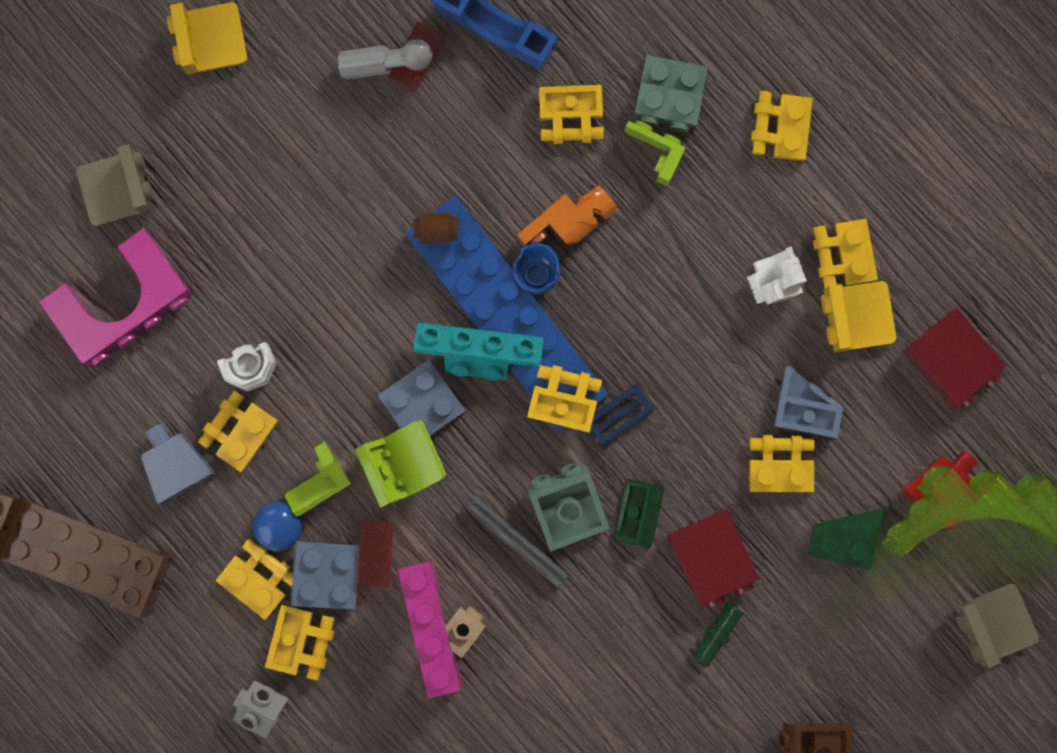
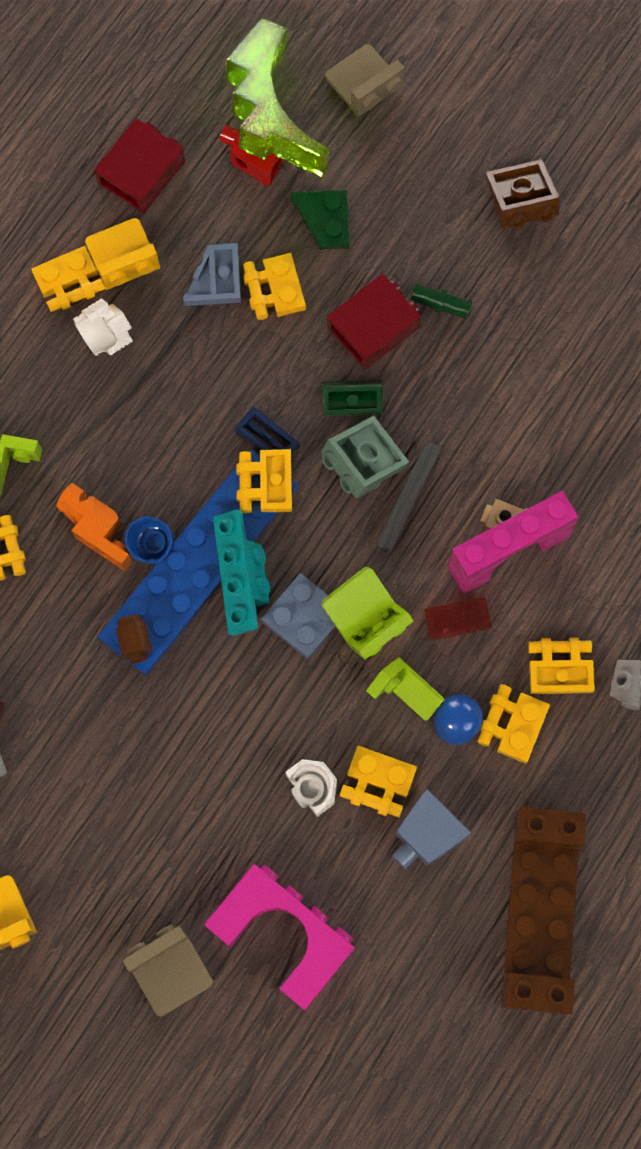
camera: 105 degrees left, 10 degrees down
(325, 575) = (491, 659): sand blue plate -> none

